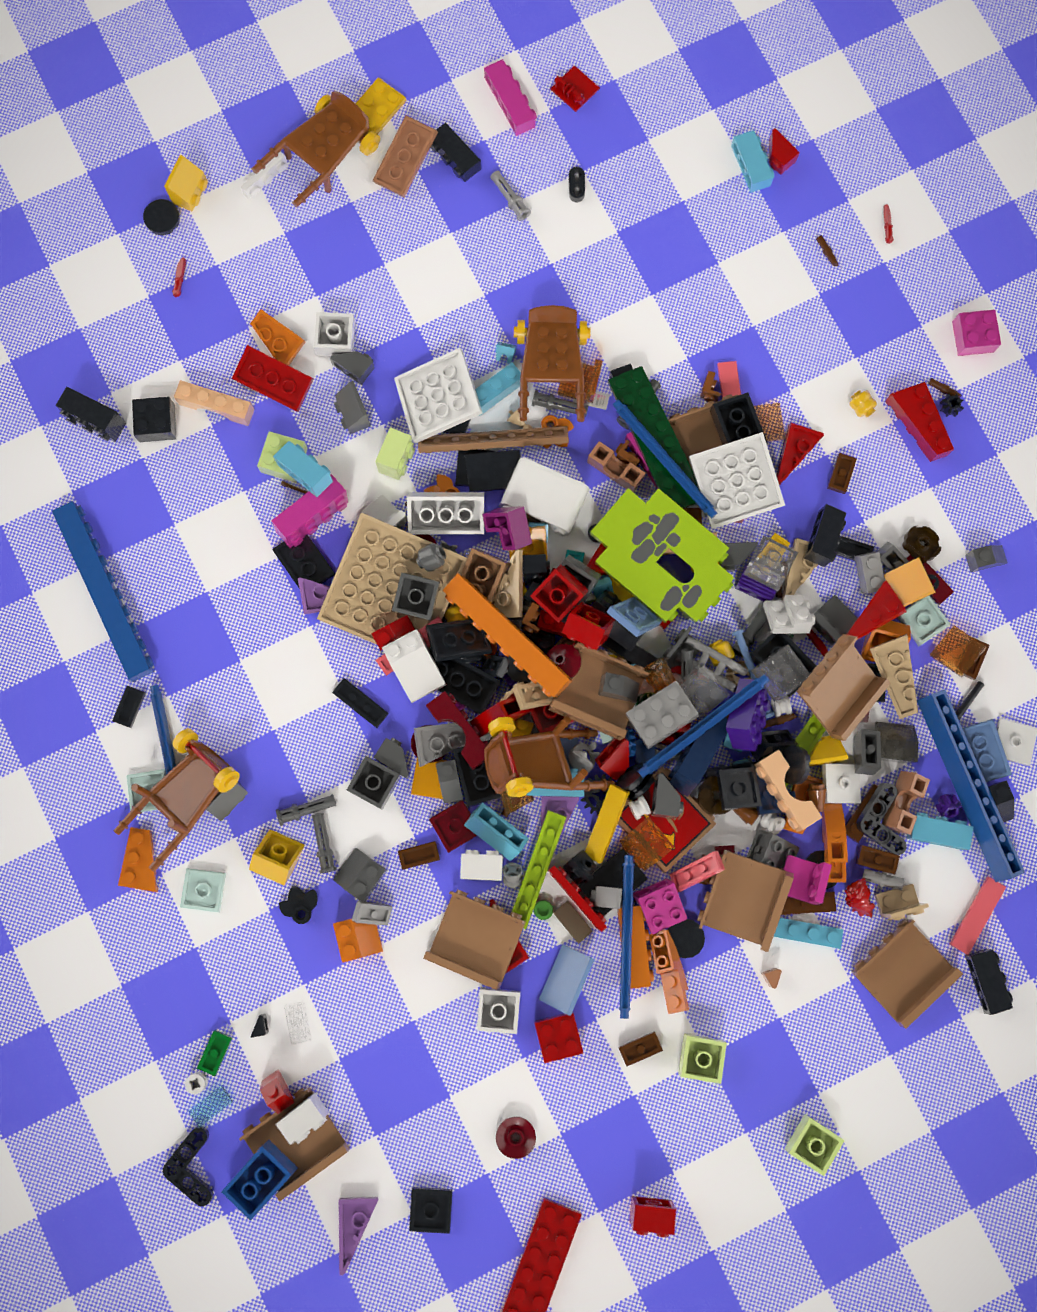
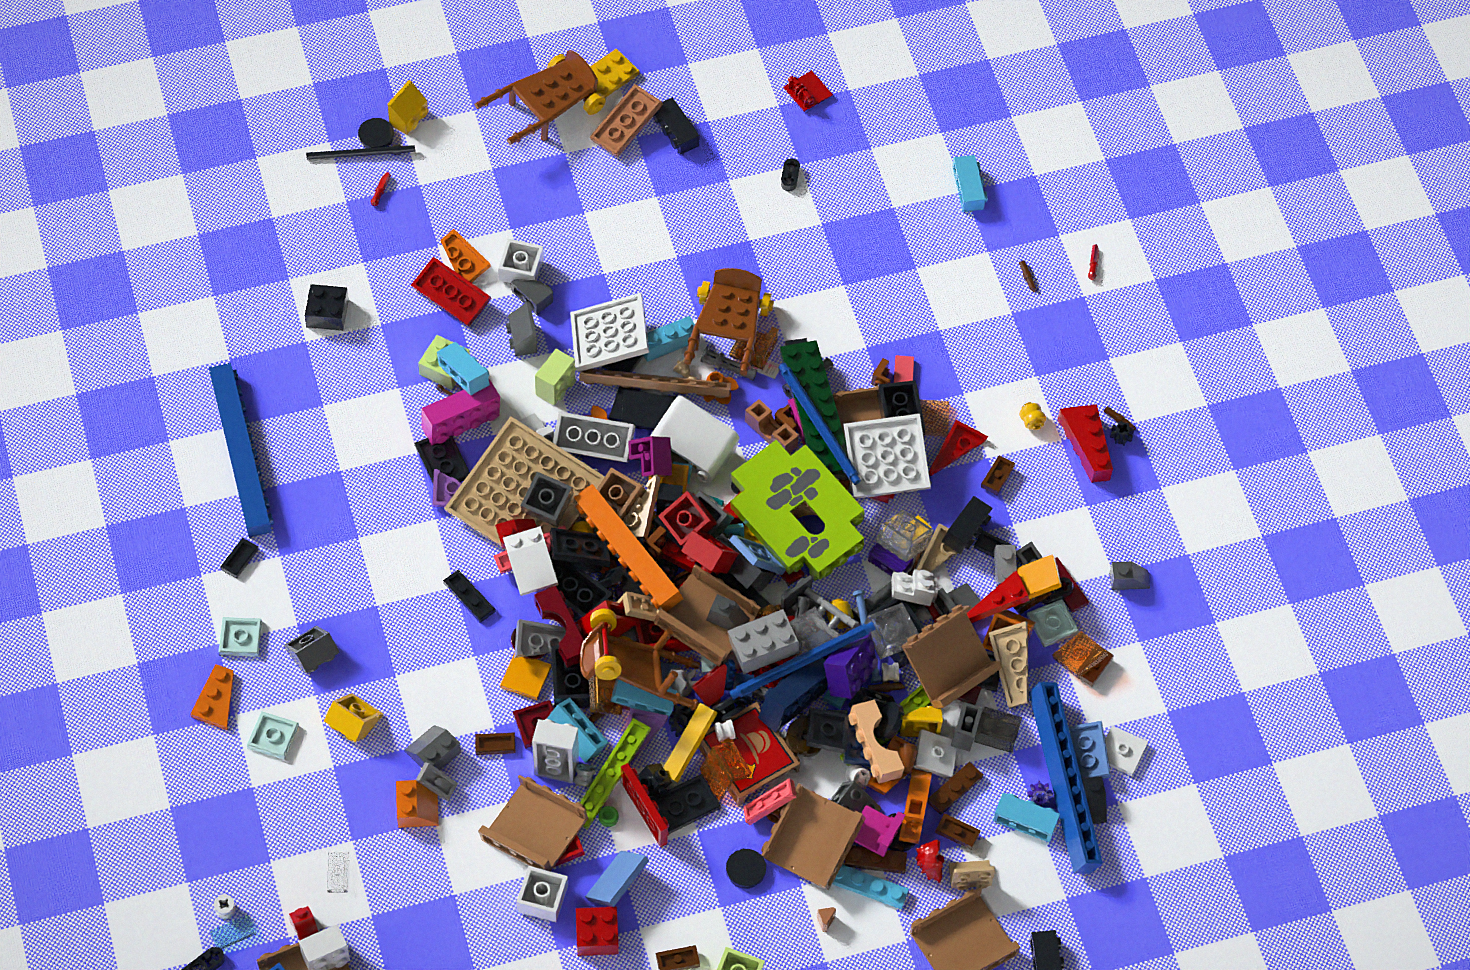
camera: 10 degrees right, 20 degrees down
(90, 415) = (267, 291): black brick -> none
(162, 728) = (267, 613): blue piece -> none
(185, 231) = (396, 149): none -> black bar
(185, 790) = (279, 635): dark orange piece -> none
(204, 398) = (404, 309): light nougat arch -> none
(214, 1053) = (249, 882): green plate -> none
(261, 1026) = (300, 867): black slope -> none
(264, 177) = (485, 114): white plate -> none
(296, 811) = (382, 680): dark grey pin -> none
(299, 901) = (365, 763): black plate -> none
(318, 819) = (402, 721): dark grey pin -> none
(373, 782) = (466, 665): dark grey brick -> none
(393, 756) = (489, 648): dark grey slope -> none
(431, 557) = (569, 467): dark grey head -> none
(449, 781) = (541, 676): dark grey slope -> none
(505, 349) = (682, 305): medium azure tile -> none
(509, 97) = (741, 87): dark pink brick -> none
(514, 201) = (724, 179): light grey pin -> none
(571, 658) = (683, 580): dark red dish -> none
(572, 922) = (635, 832): dark tan slope -> none
(606, 897) = (675, 807): light grey slope -> none
(626, 939) = (678, 875): blue piece -> none
(640, 955) = (692, 863): orange brick -> none
(660, 905) = (727, 830): dark pink bracket -> none
(665, 799) = (751, 725): dark grey slope -> none
(671, 971) = (724, 890): orange slope -> none
(737, 554) = (870, 527): dark grey slope -> none
(748, 815) = (833, 763): dark orange cone -> none
(781, 152) = (1000, 181): red slope -> none
(875, 818) = (960, 791): black beam -> none
(883, 879) = (959, 849): light grey pin -> none
(909, 787) = (1000, 771): nougat arch -> none
(916, 549) = (1065, 560): dark brown plate -> none
(969, 699) = (1083, 704): black bar -> none
(976, 332) = (1160, 372): dark pink brick -> none
(977, 915) = (1050, 902): coral tile -> none

